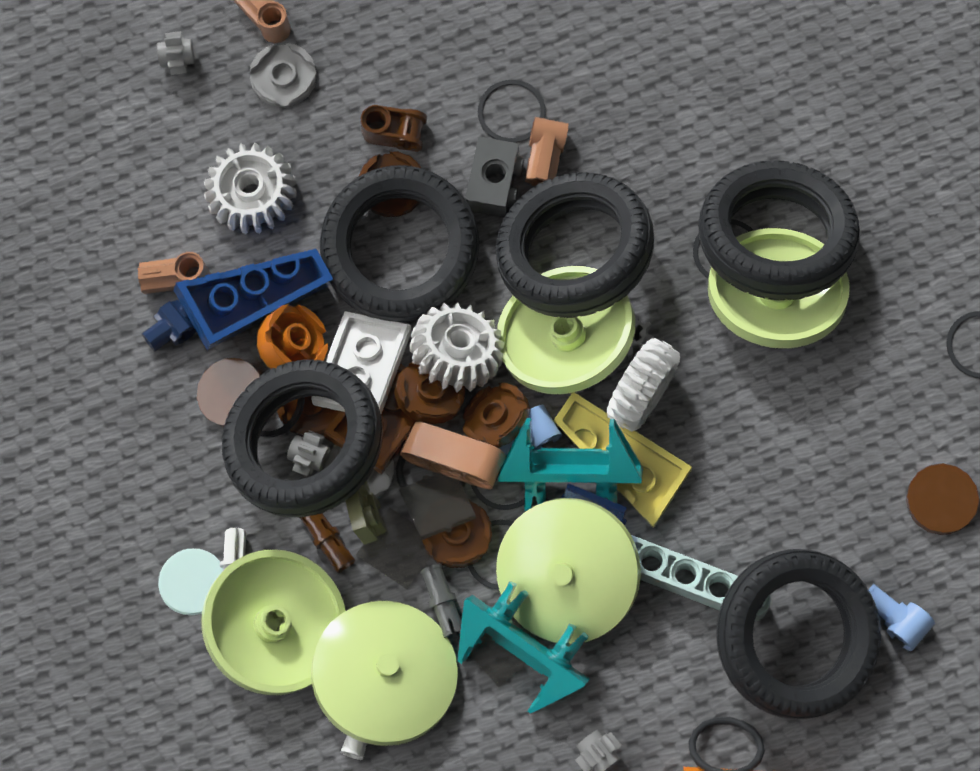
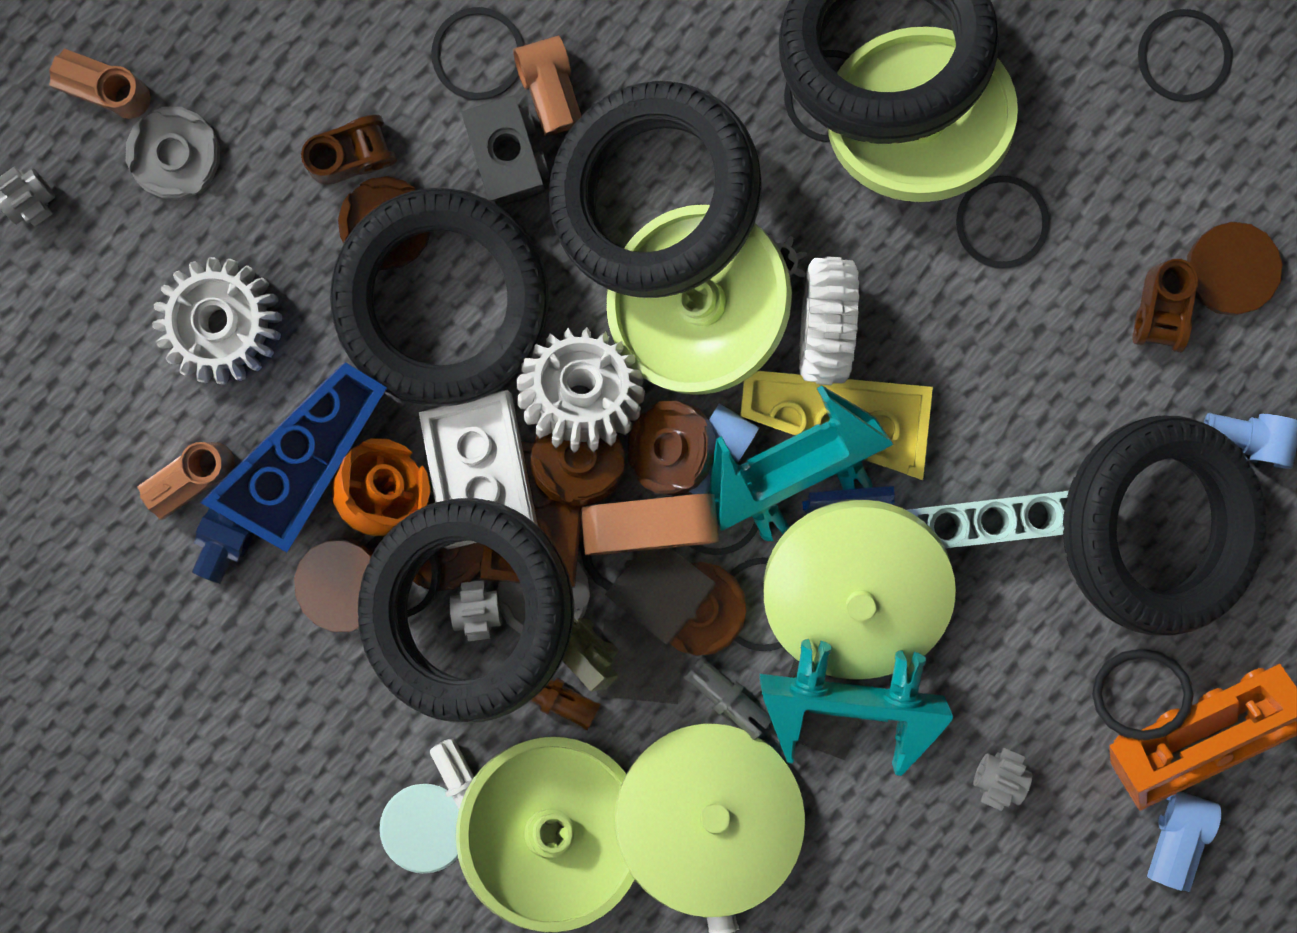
camera: 35 degrees left, 15 degrees up
(807, 359) = (1003, 264): none -> black piece
(876, 501) = (1167, 309): none -> reddish brown piece

